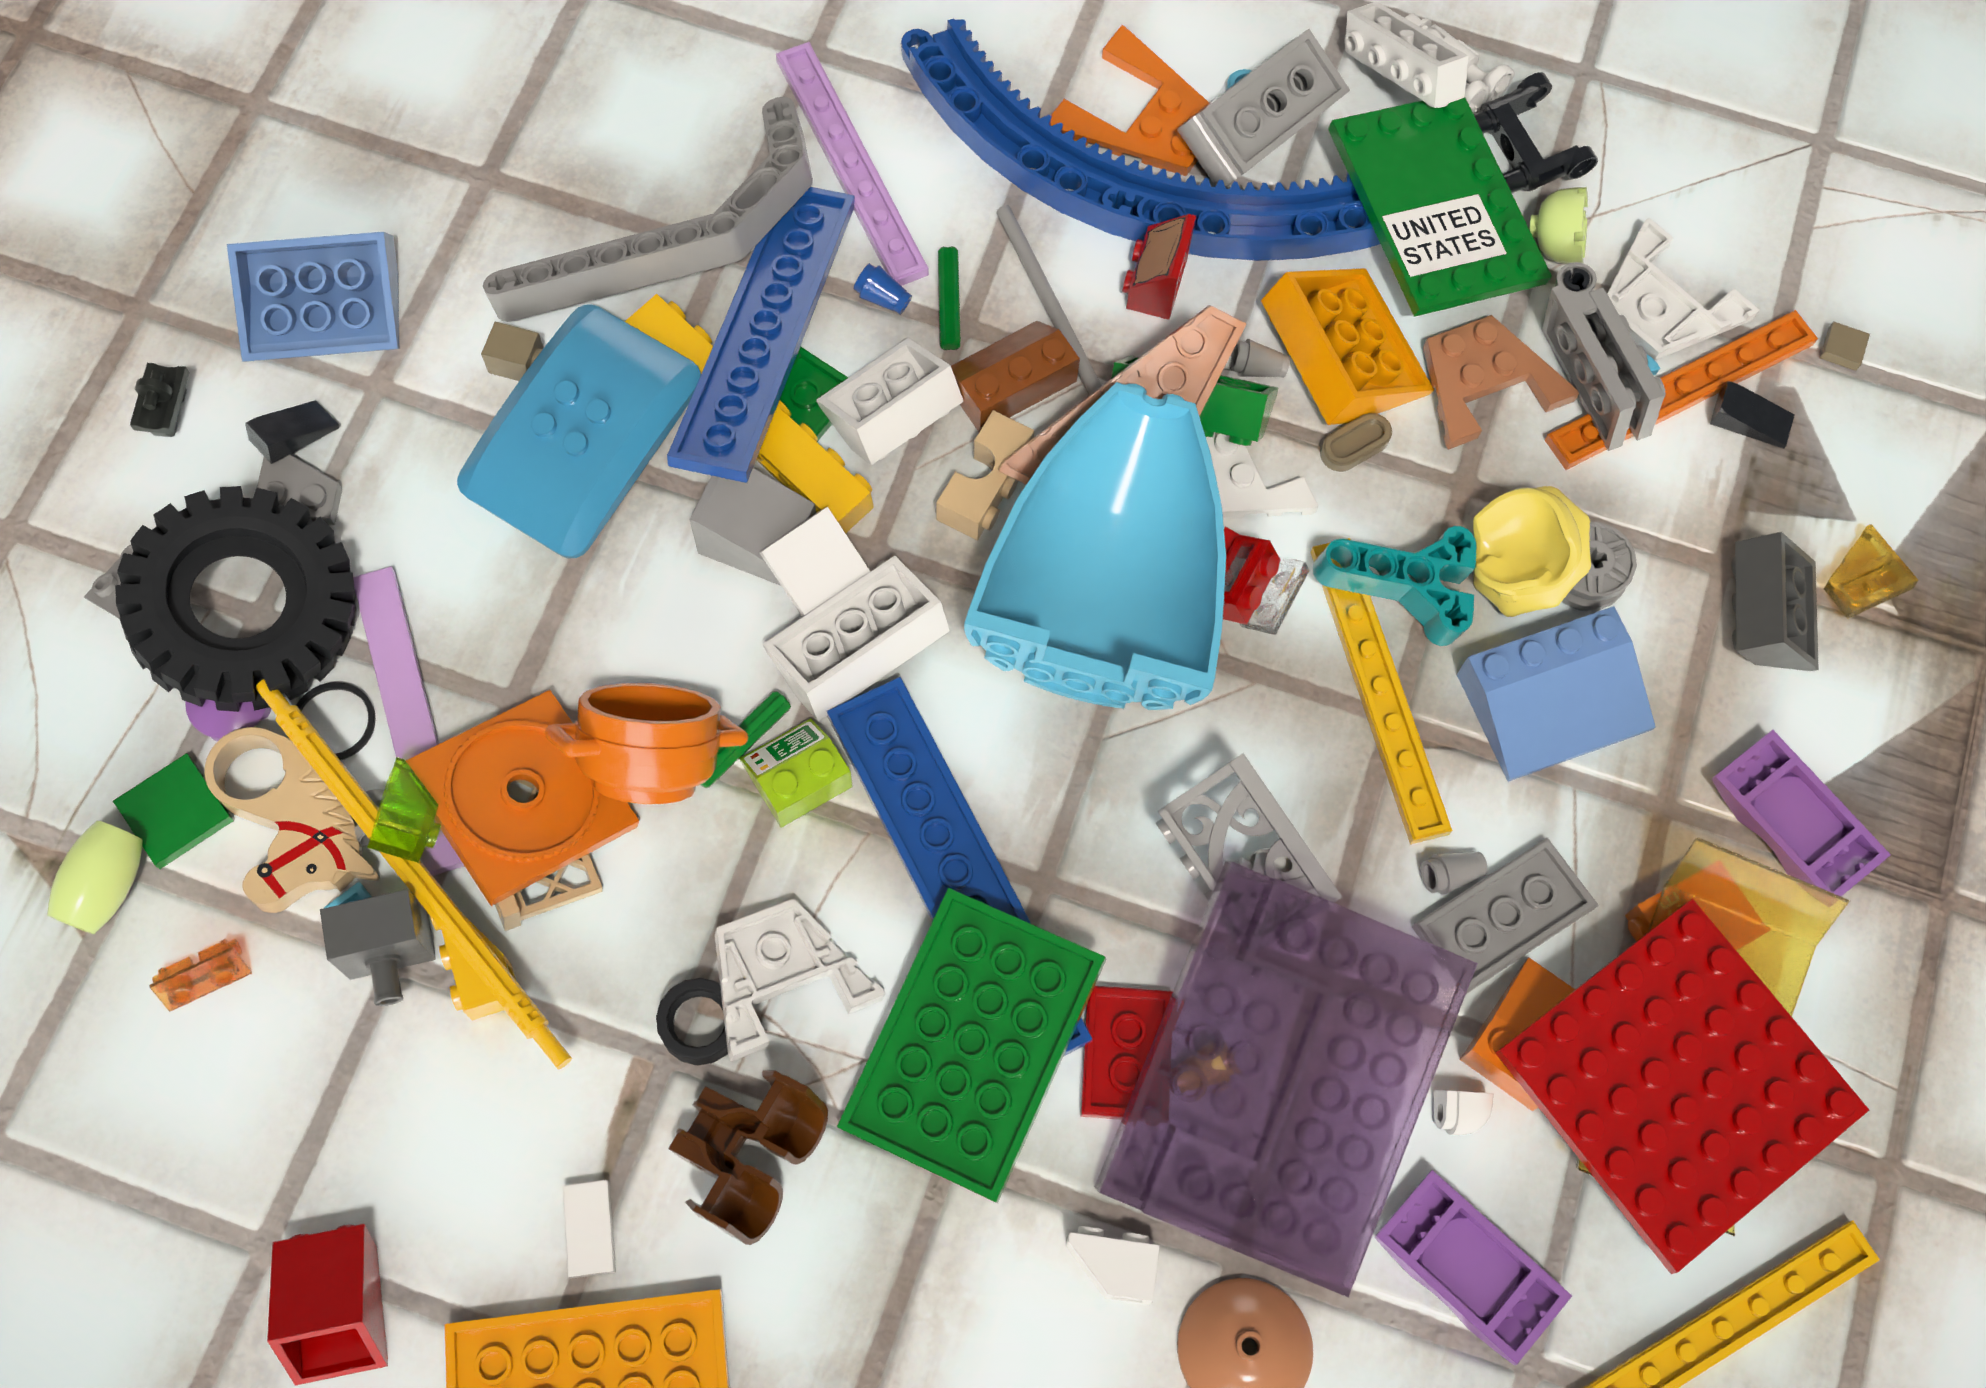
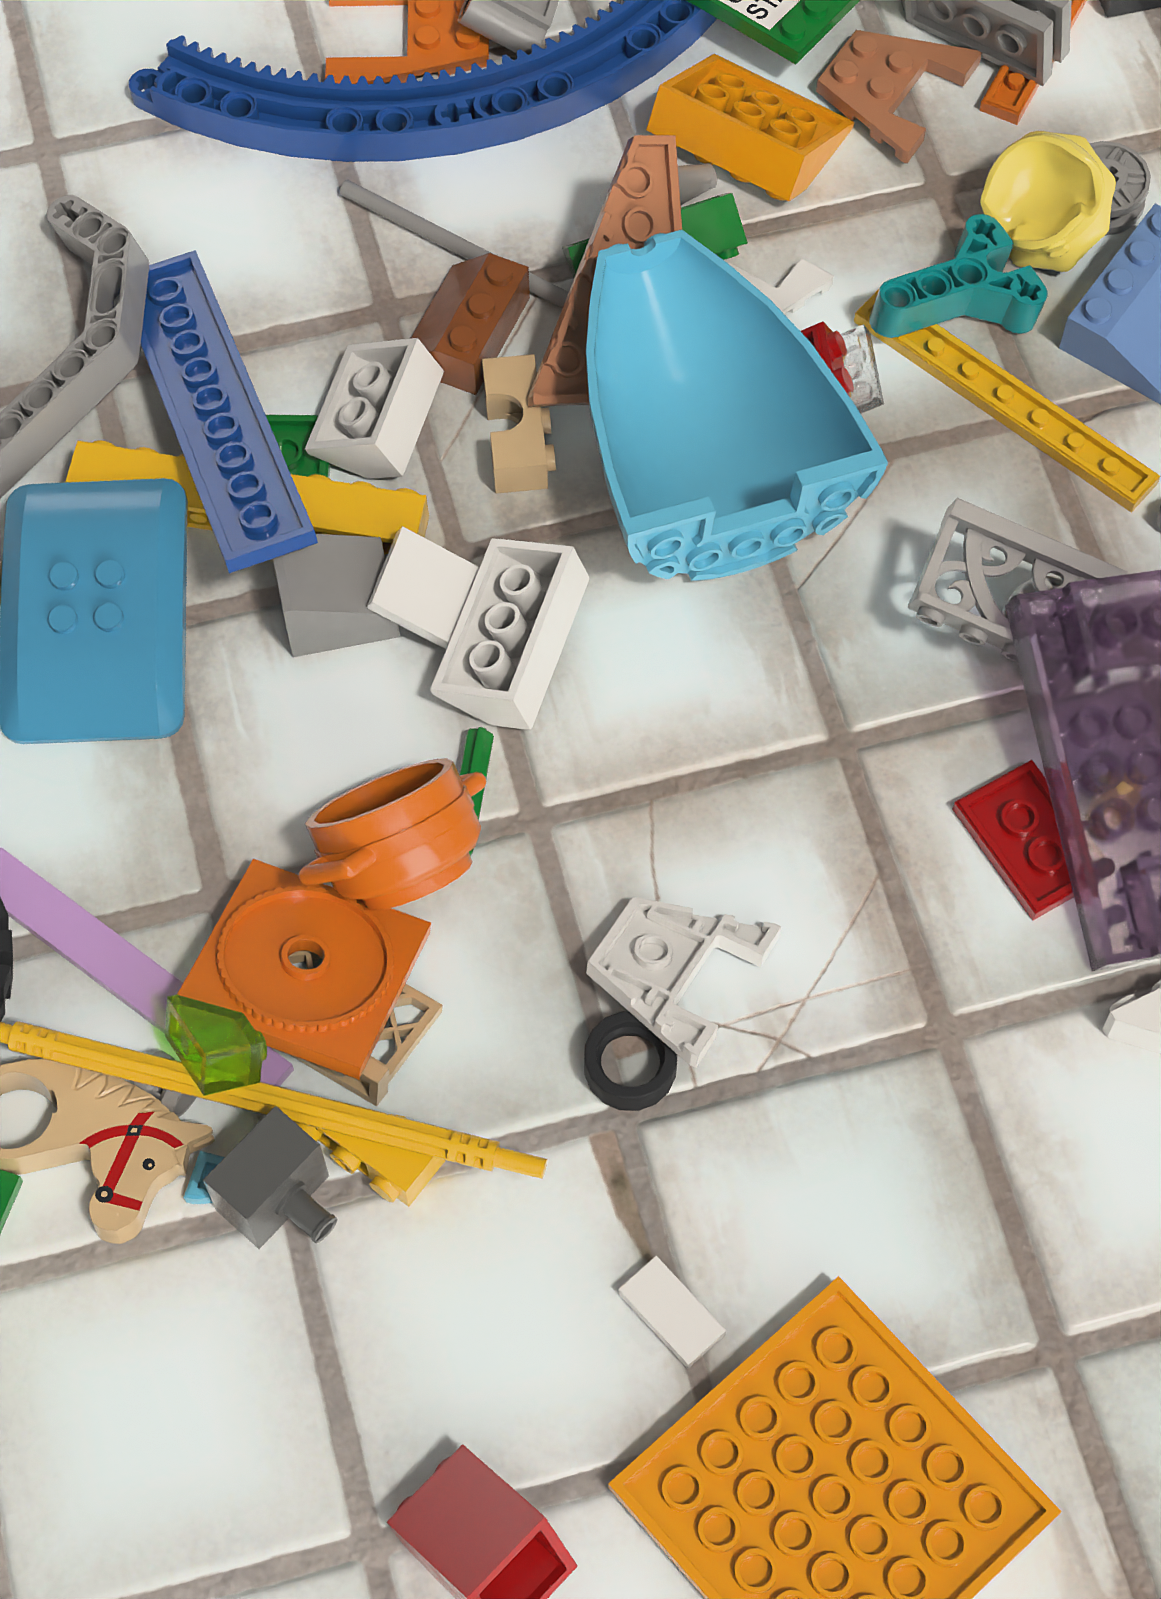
camera: 30 degrees left, 5 degrees down
(188, 981) = (120, 1321): clear orange hinge -> none
(347, 687) = (53, 985): black piece -> none
(786, 1124) = (726, 1136): reddish brown piece -> none
(797, 772) = (546, 785): lime slope -> none
(852, 164) = (169, 227): lavender tile -> none
(882, 289) = (287, 318): blue cone -> none
(923, 805) = (765, 784): blue plate -> none
(949, 298) = (355, 292): green axle -> none
(972, 1044) = (898, 912): green plate -> none
(1159, 266) = (535, 149): red slope -> none
(1356, 442) = (821, 204): dark tan tile -> none

